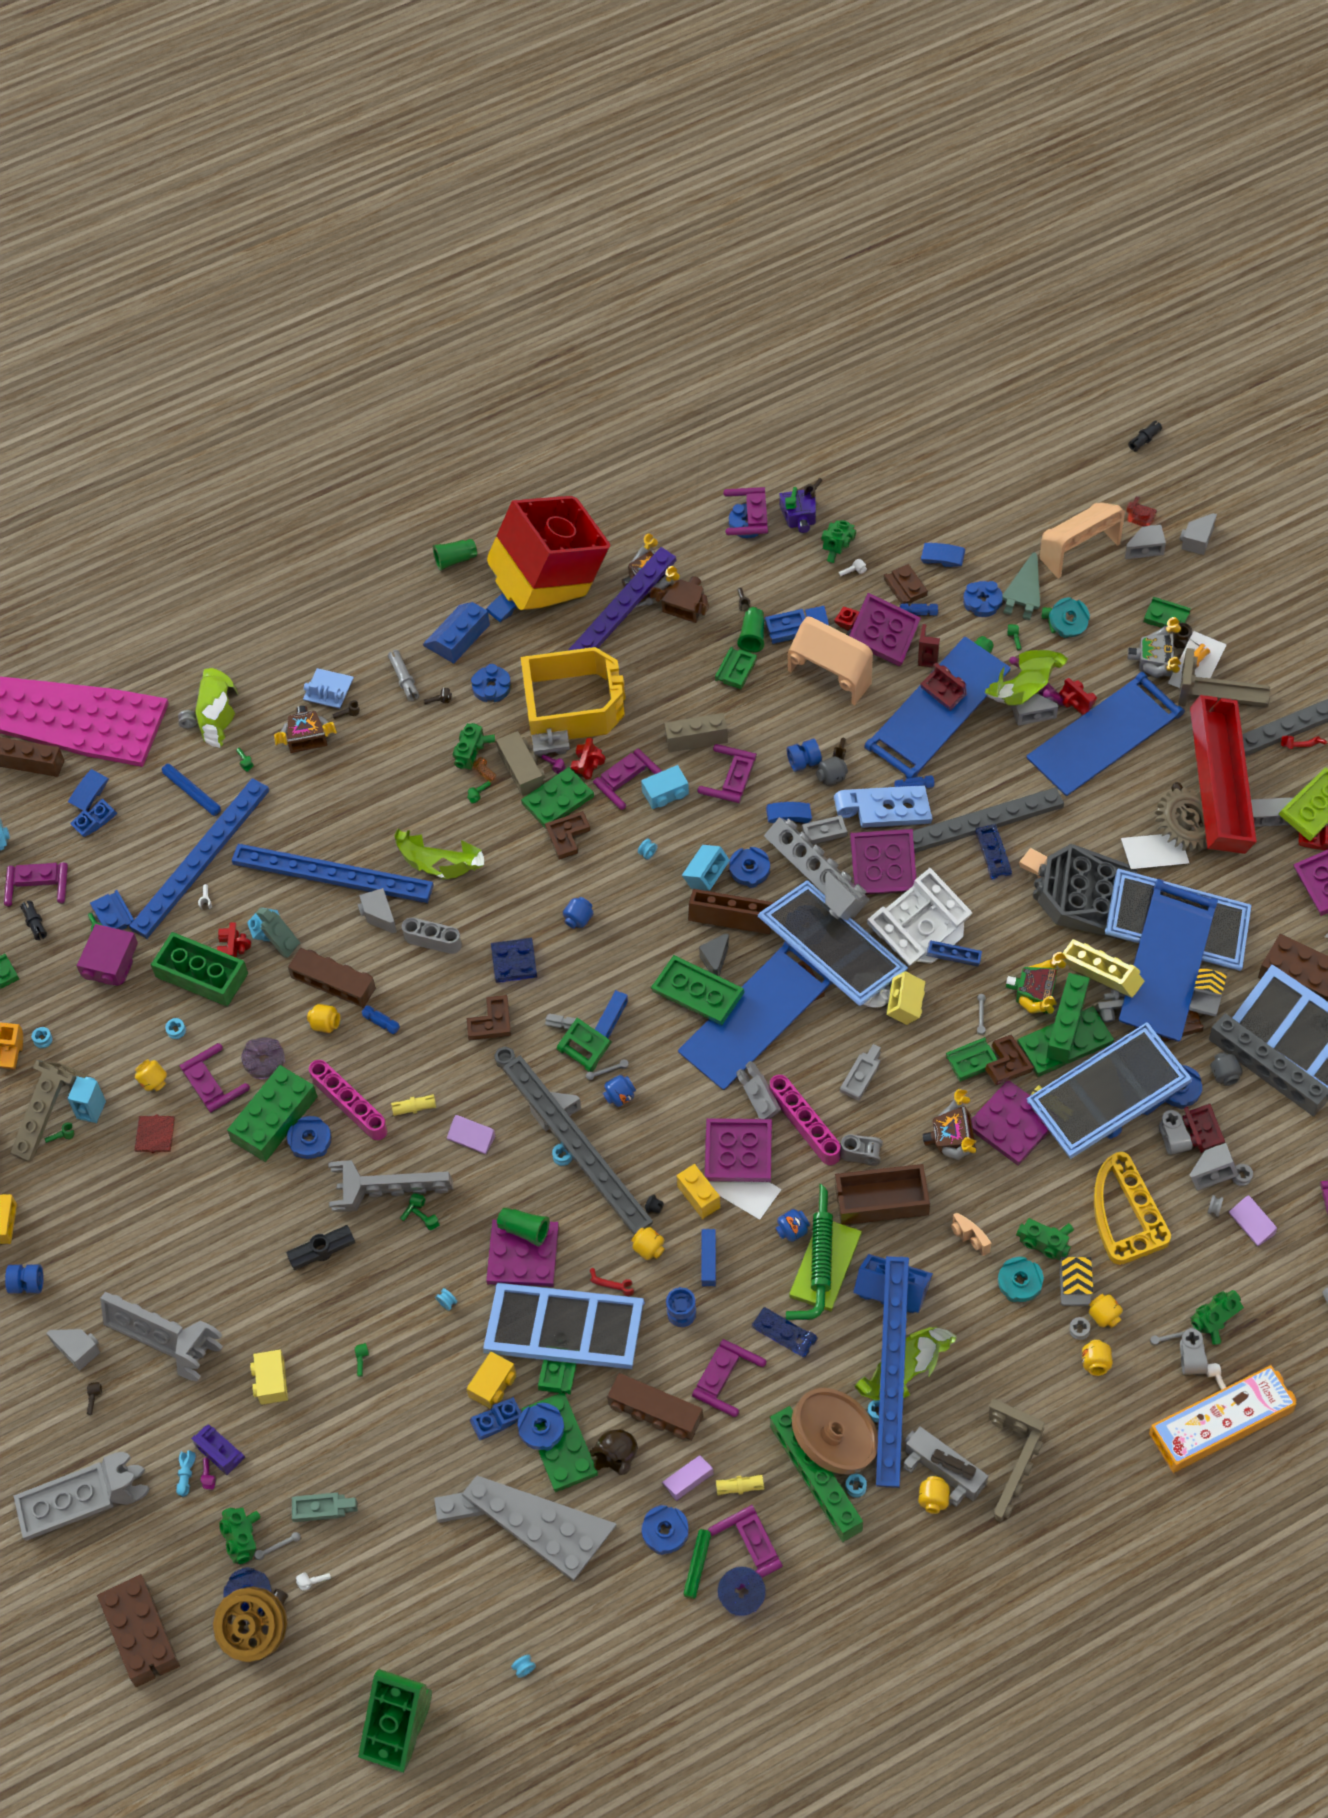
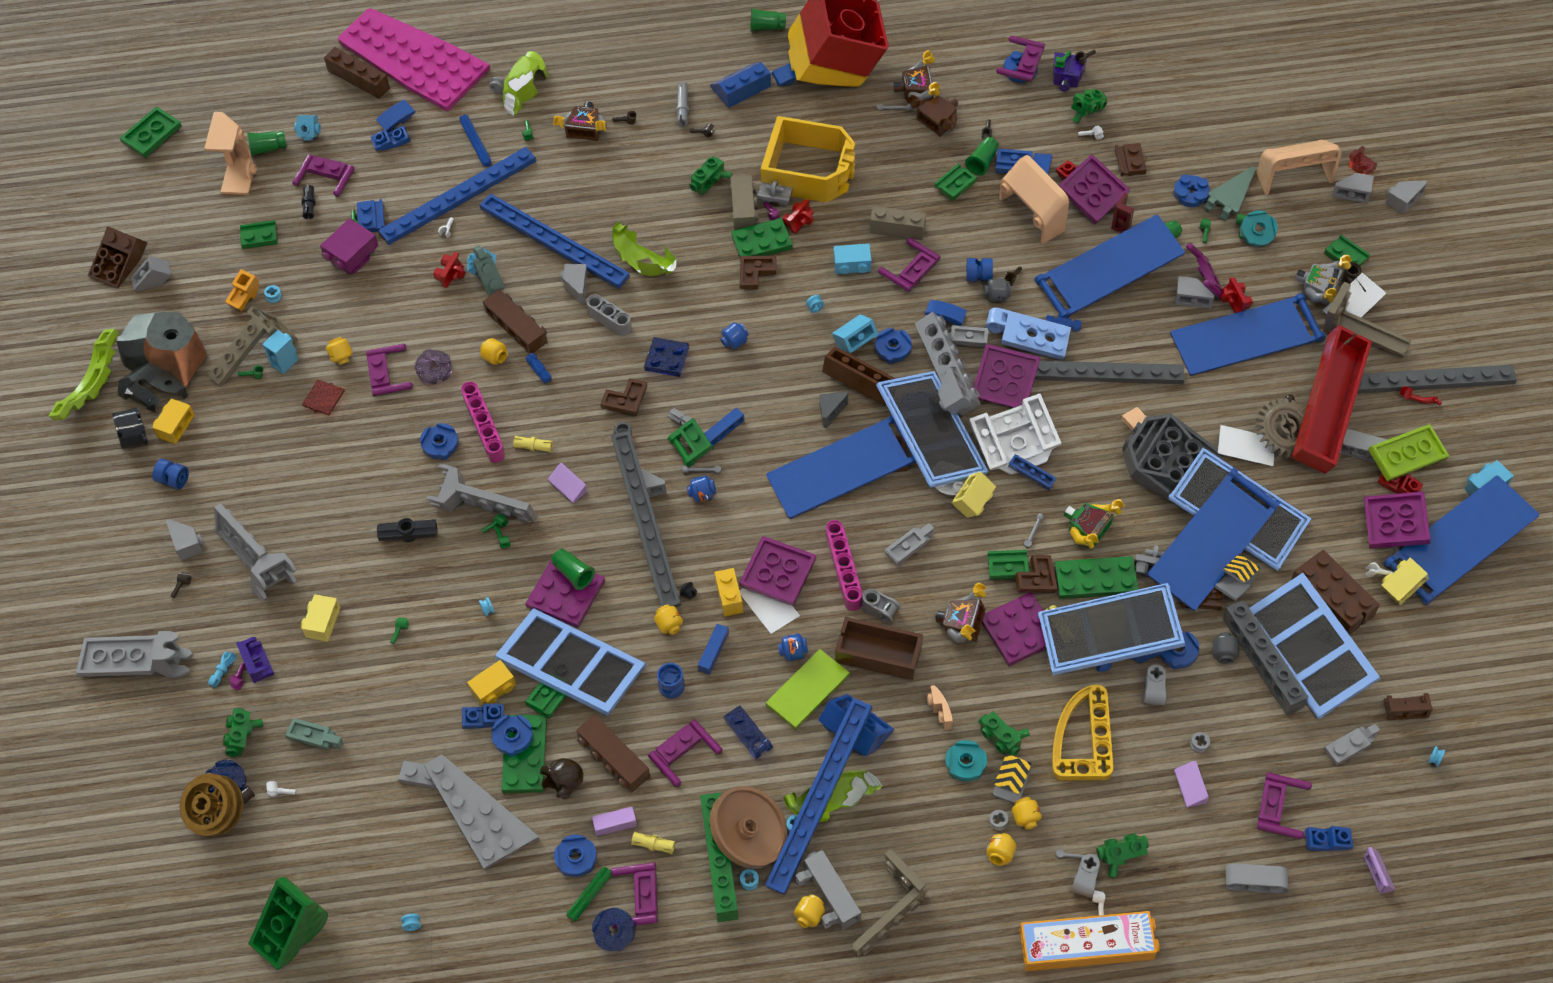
camera: 20 degrees right, 0 degrees up
(138, 1630) = (127, 778): reddish brown piece -> none
(173, 1022) = (378, 326): medium azure bush -> none
(199, 969) = (414, 280): green brick -> none
(259, 1554) = (249, 755): light grey hinge -> none
(272, 1112) = (417, 410): green brick -> none
(327, 688) = (618, 95): light blue hinge -> none
(474, 795) = (695, 214): green hand -> none
(480, 767) = (710, 197): clear orange arm -> none
(488, 674) = (749, 125): blue plate -> none
(565, 1160) = (633, 529): medium azure bush -> none
(611, 1284) = (624, 642): red piece -> none
(622, 773) = (822, 237): magenta plate -> none
(625, 600) = (888, 99): dark purple plate -> none
(697, 990) = (803, 430): green plate -> none
(758, 1092) = (815, 528): light grey hinge -> none
(821, 1259) = (803, 683): green piece -> none
(921, 609) = (1134, 183): blue axle -> none
(941, 553) = (1173, 143): blue slope -> none
(944, 686) = (1120, 250): dark red bracket -> none
(953, 1464) = (834, 891): dark brown axle -> none
(993, 851) = (1105, 399): clear blue plate -> none
(1035, 673) = (1204, 265): lime animal -> none
(1067, 1017) = (1103, 557): green brick -> none
(1103, 968) = (1152, 526): light yellow brick -> none
(1145, 436) = (1395, 100): black pin -> none
(1201, 655) = (1358, 294): light orange pin -> none
(1204, 1127) = (1182, 691): dark red bracket -> none
(1213, 1167) = (1176, 726): light grey slope -> none
(1215, 1205) = (1163, 759): light grey bush -> none

